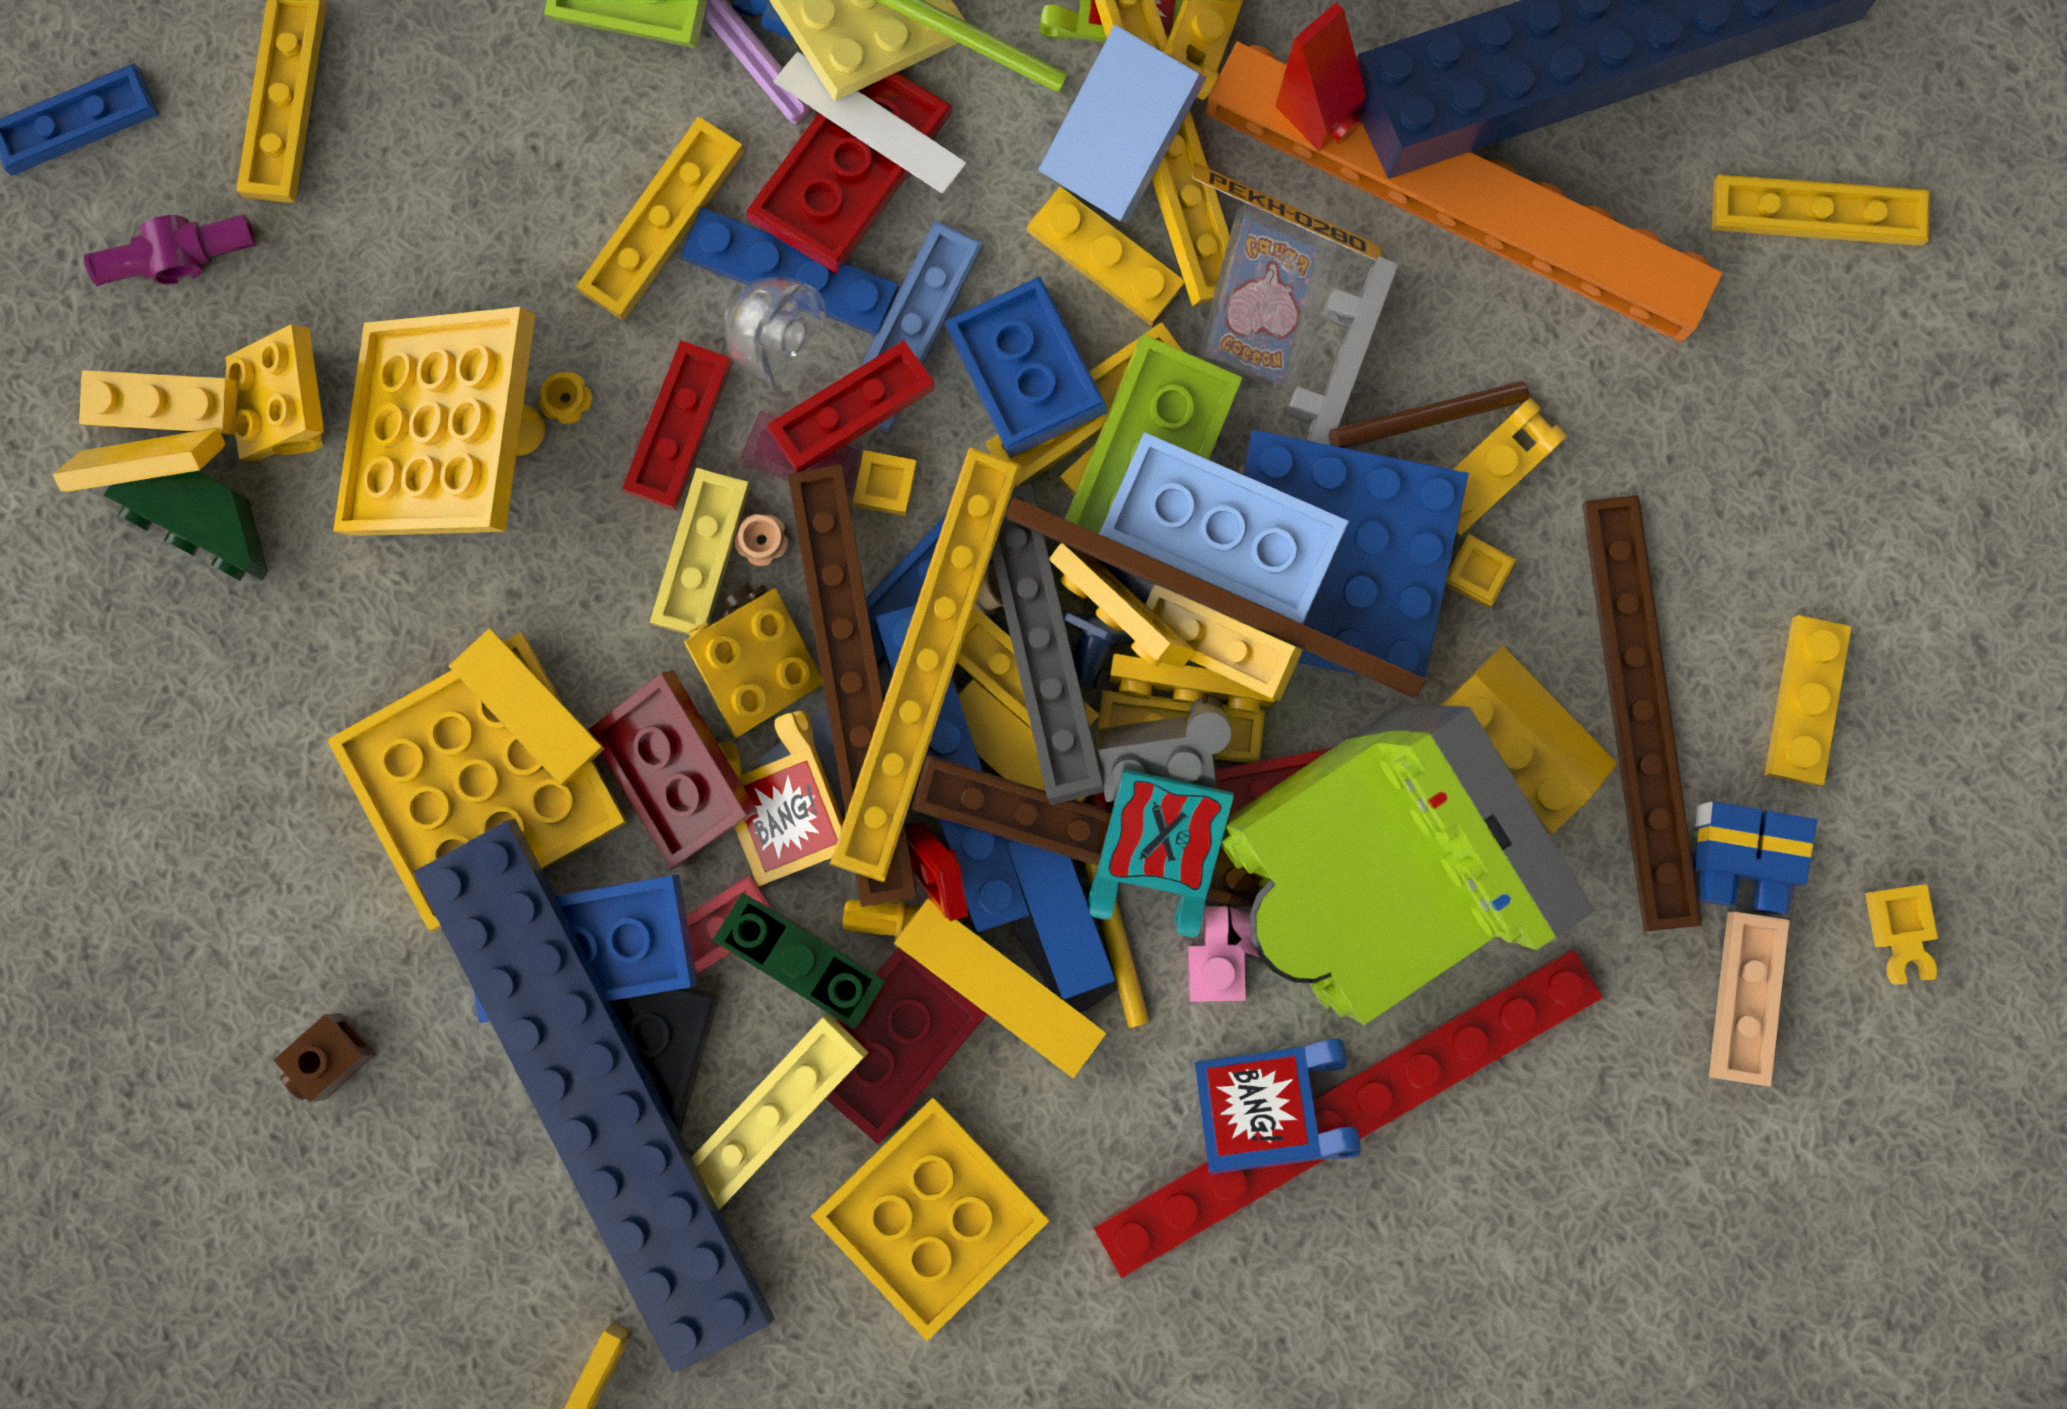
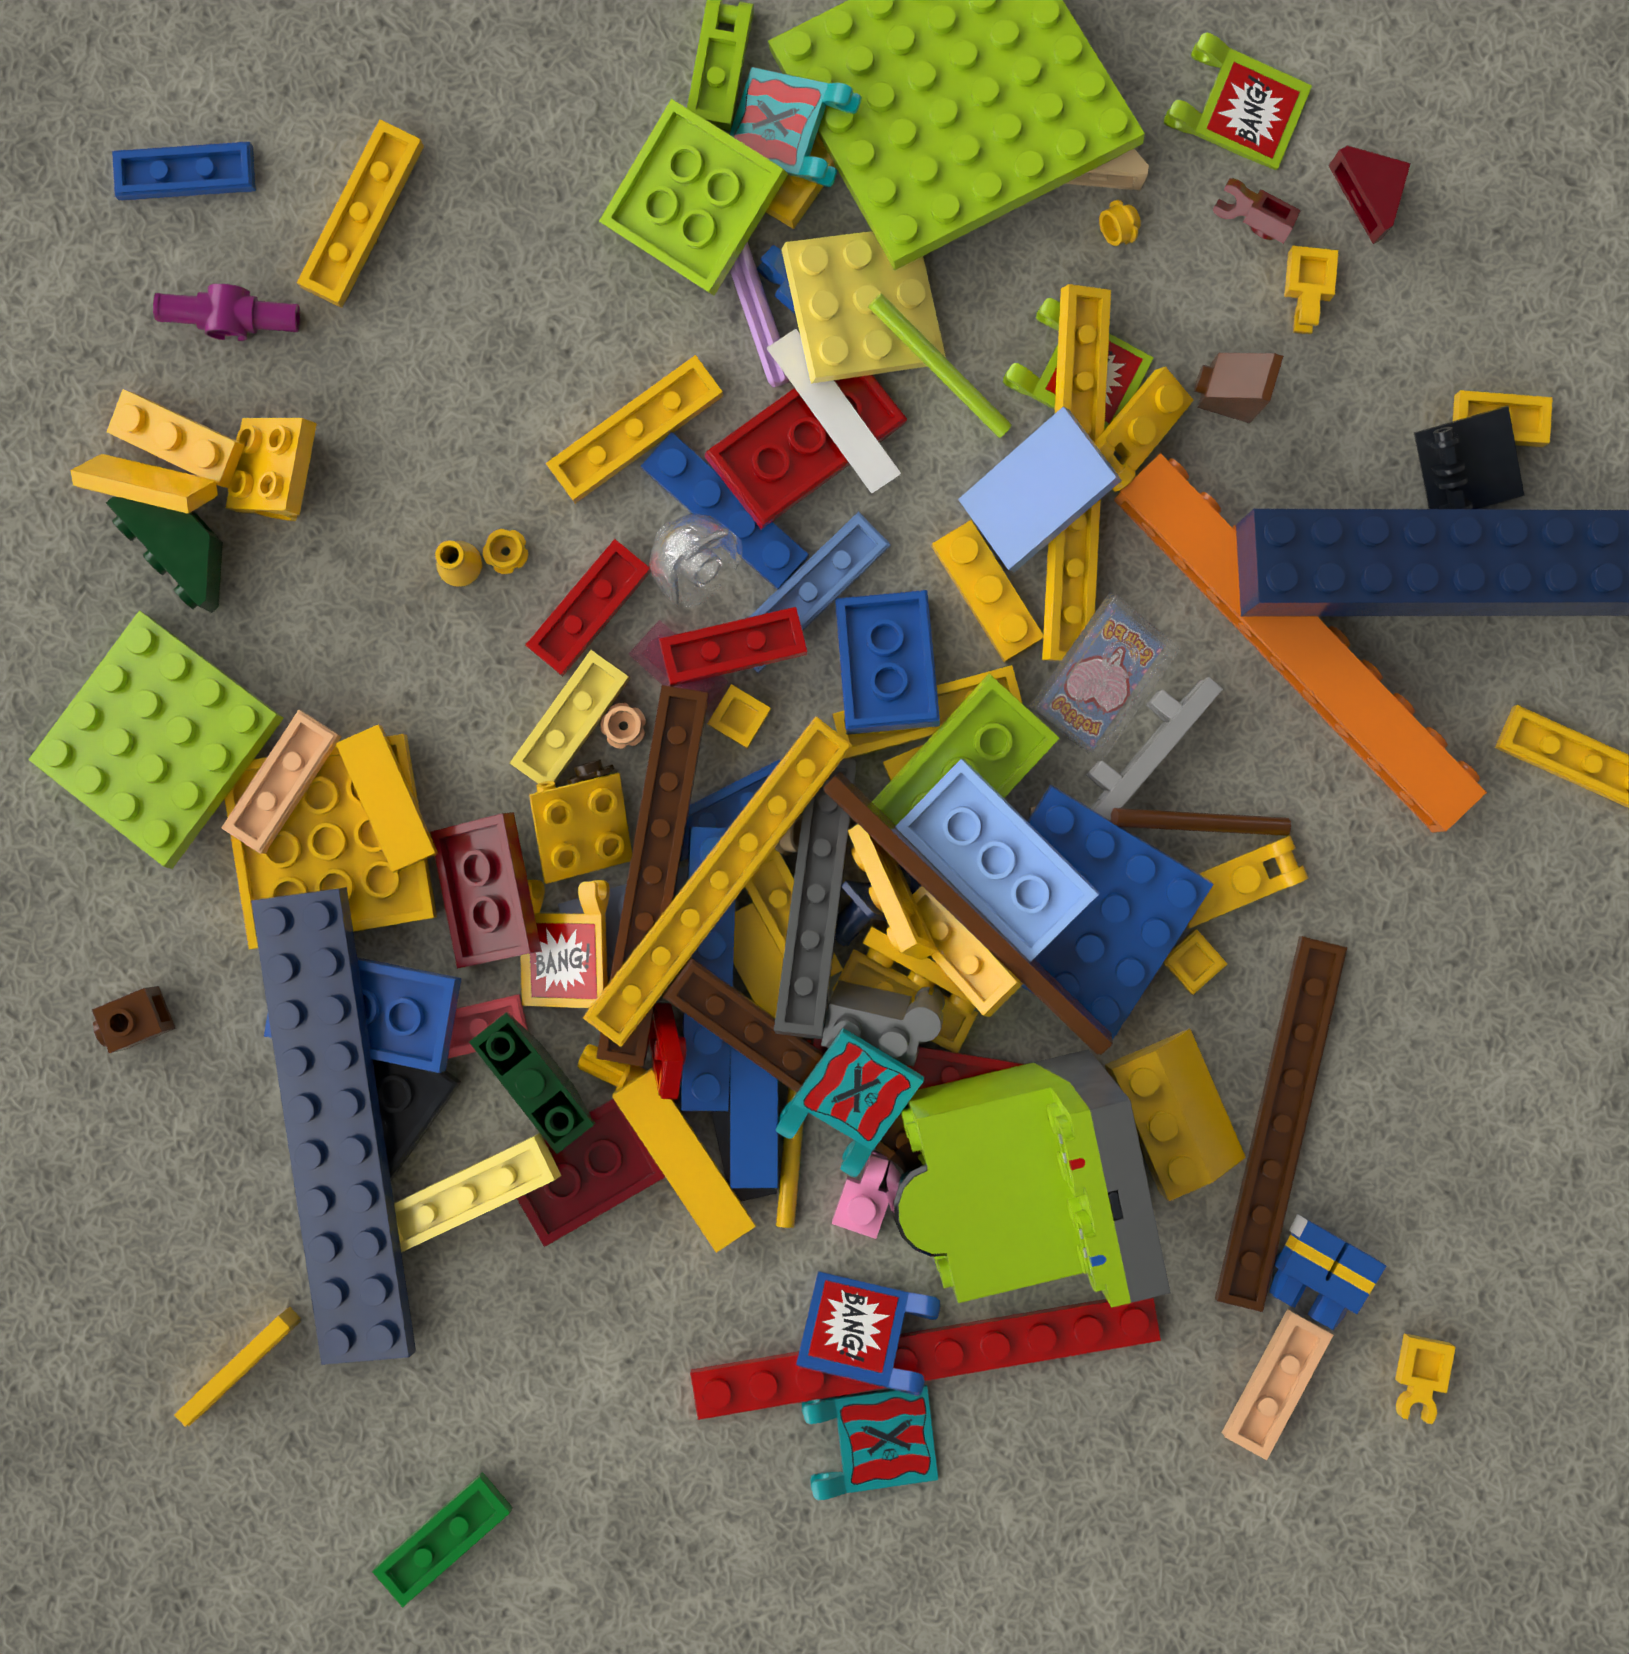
camera: 20 degrees right, 5 degrees up
(246, 737) = (155, 739): none -> lime plate
(402, 731) = (281, 782): none -> light nougat tile
(435, 424) = (391, 541): yellow plate -> none
(930, 1218) = (565, 1318): yellow plate -> none
(1286, 211) = (1148, 610): yellow sticker -> none
(1323, 81) = (1215, 524): red slope -> none
(1335, 1226) = (881, 1440): none -> flag
(1808, 701) = (1419, 1163): yellow plate -> none

